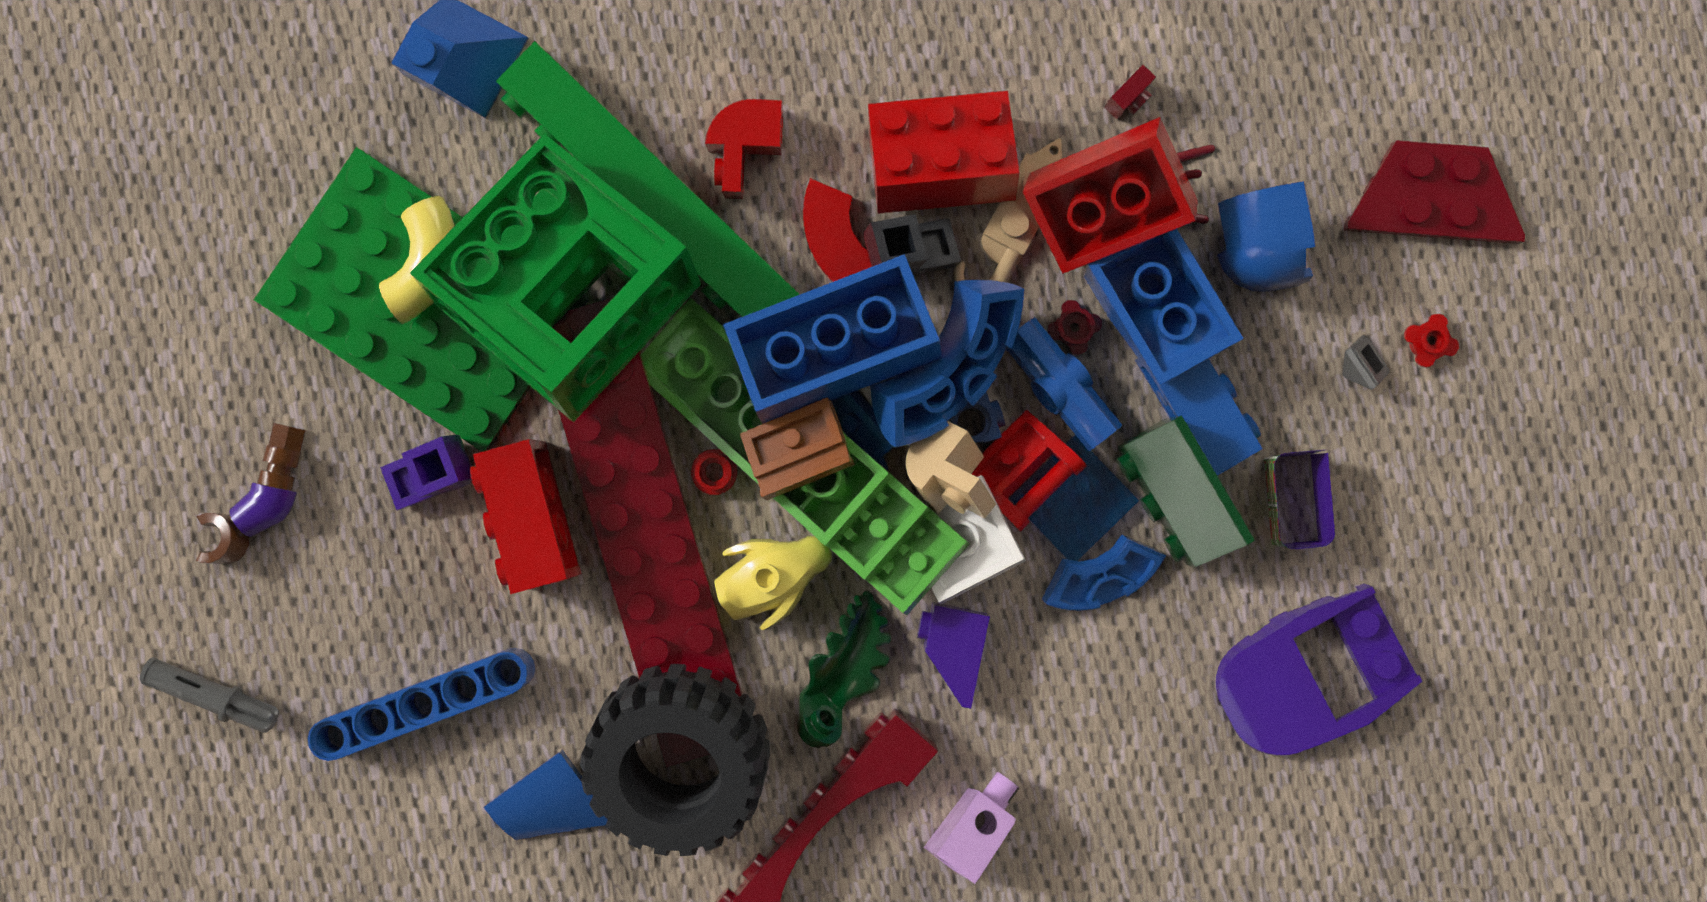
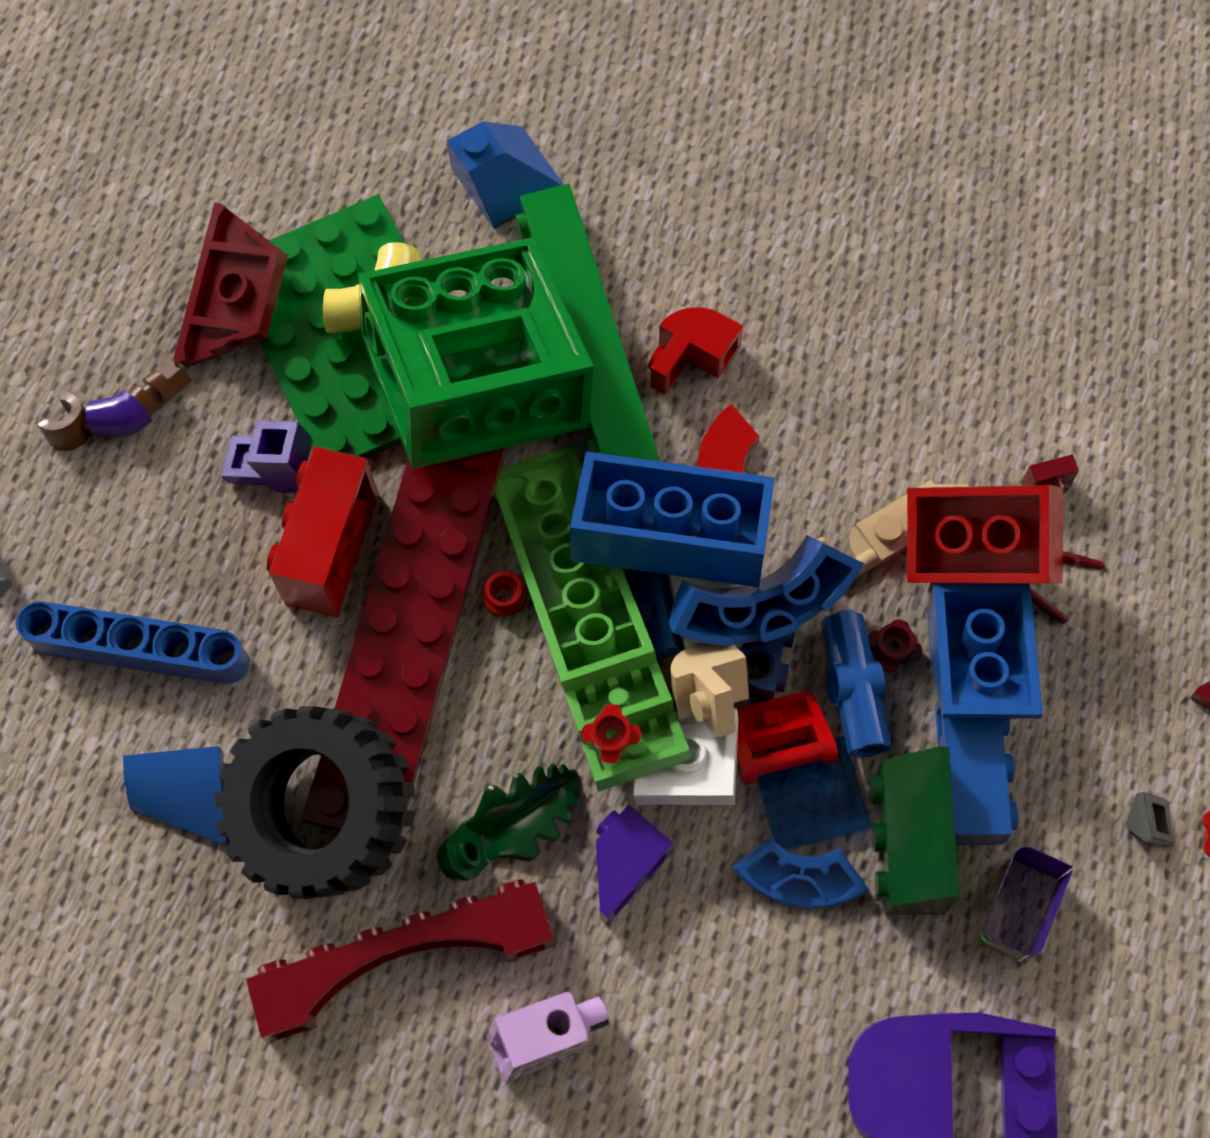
camera: 40 degrees right, 20 degrees down
(285, 327) = (231, 290): none -> dark red wing
(770, 576) = (497, 702): light yellow animal -> none
(796, 449) = (586, 590): dark orange plate -> none
(902, 581) = (611, 719): none -> red plate
(926, 245) = (793, 502): black brick -> none
(943, 152) = (856, 435): red brick -> none
(1267, 238) = (1110, 652): blue brick -> none

